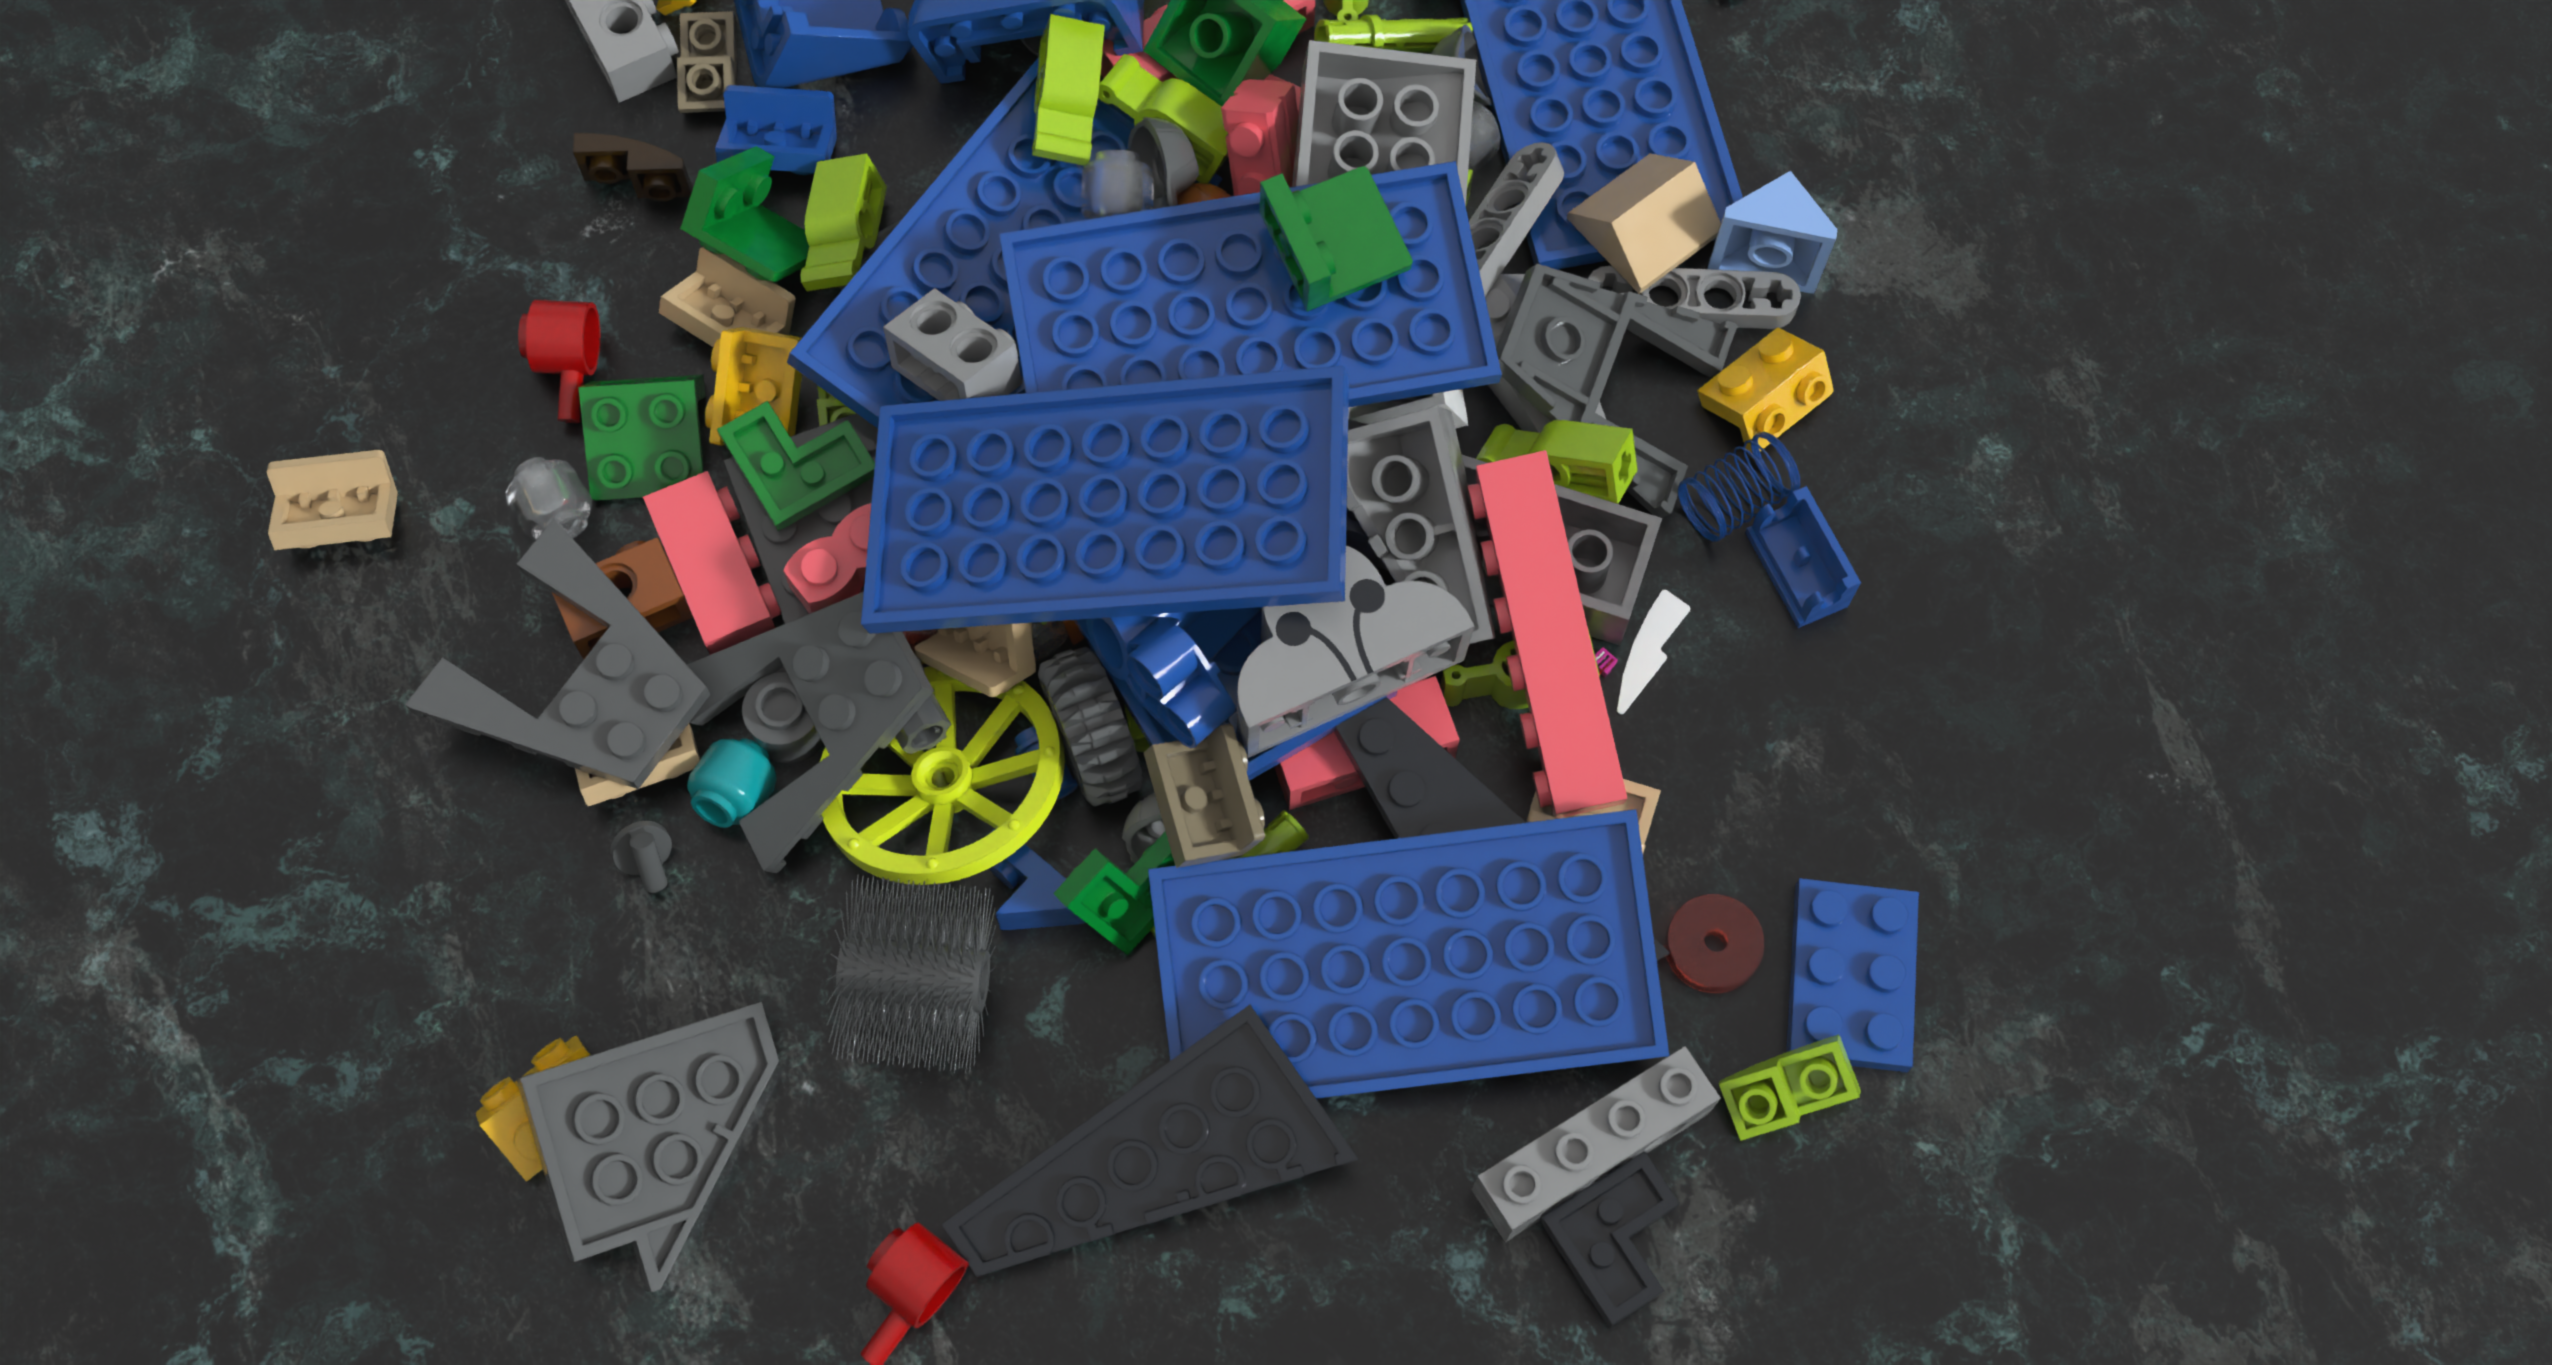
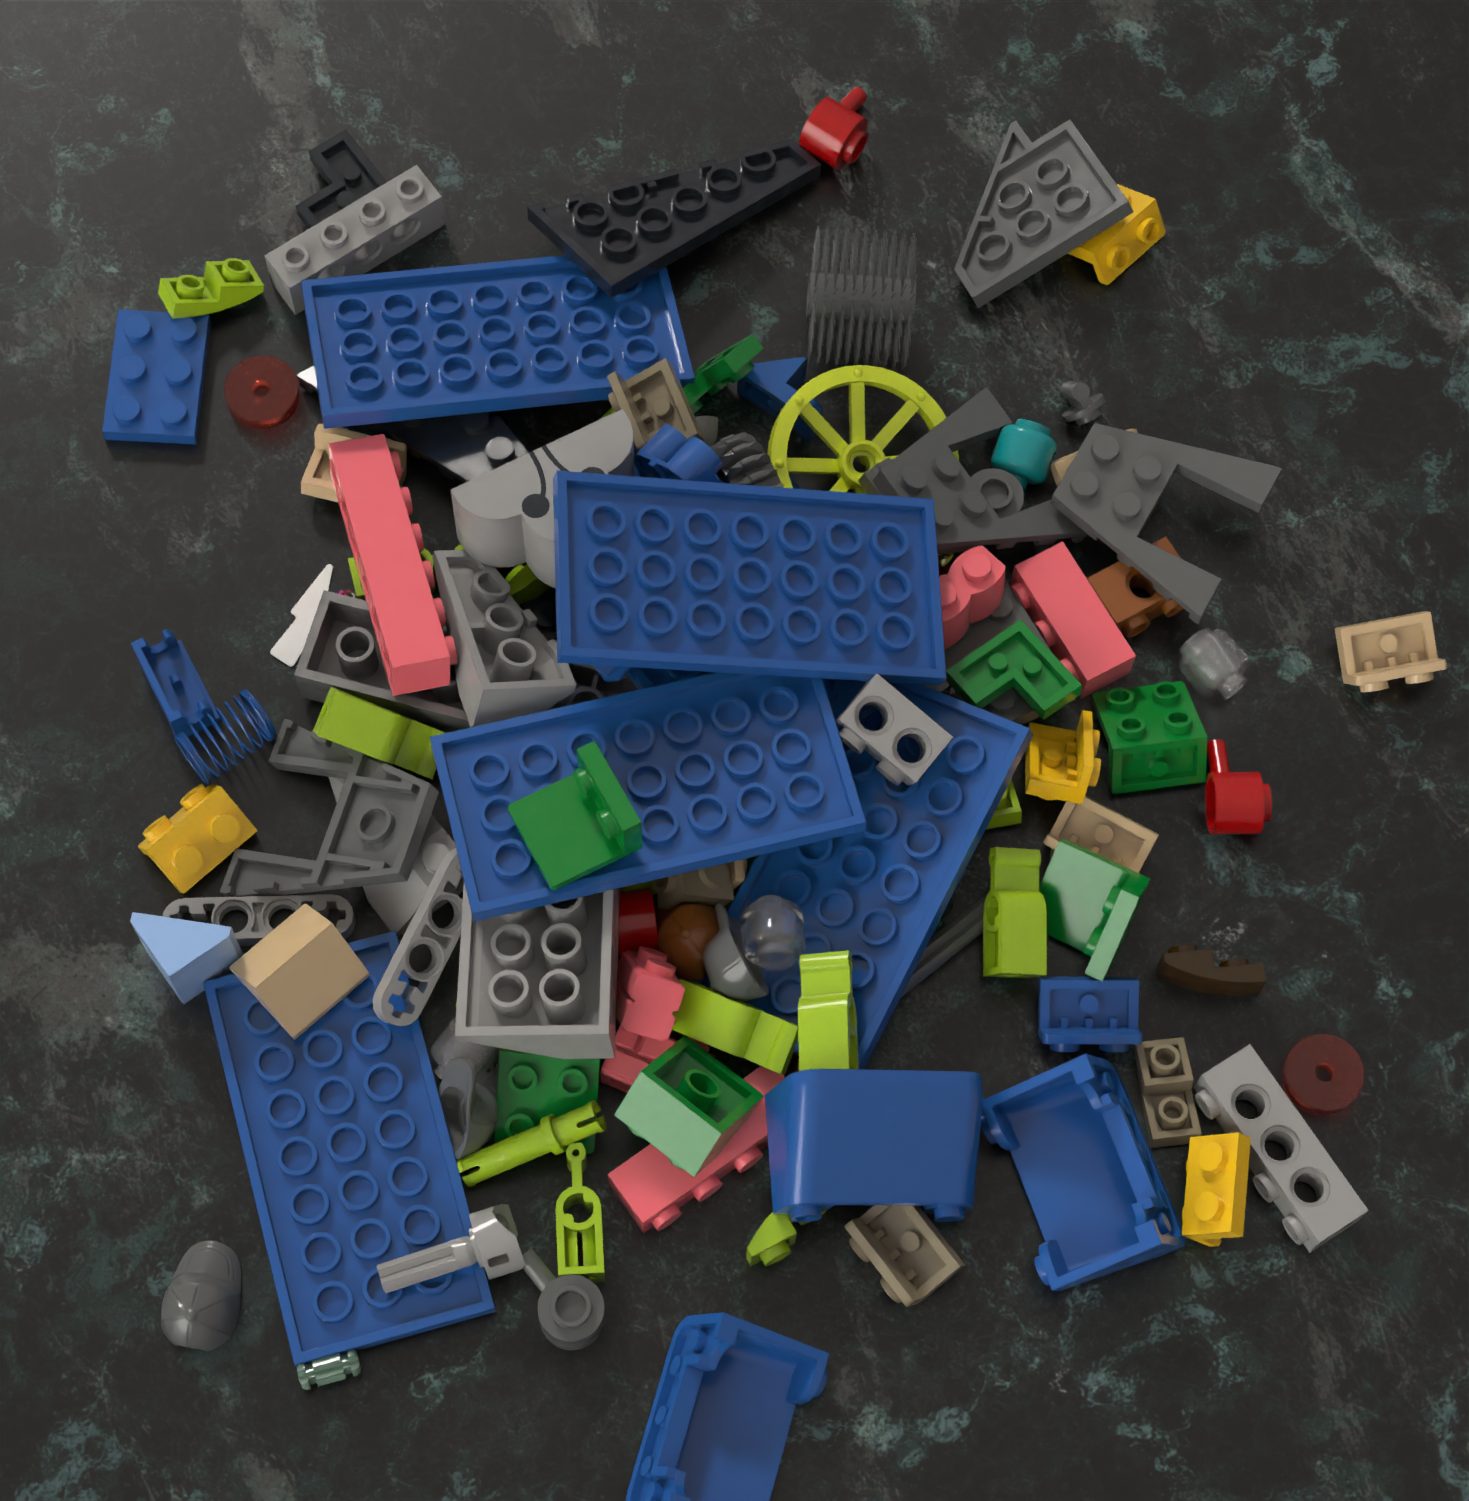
camera: 175 degrees right, 0 degrees up
(537, 92) = (1334, 1056): none -> clear red piece

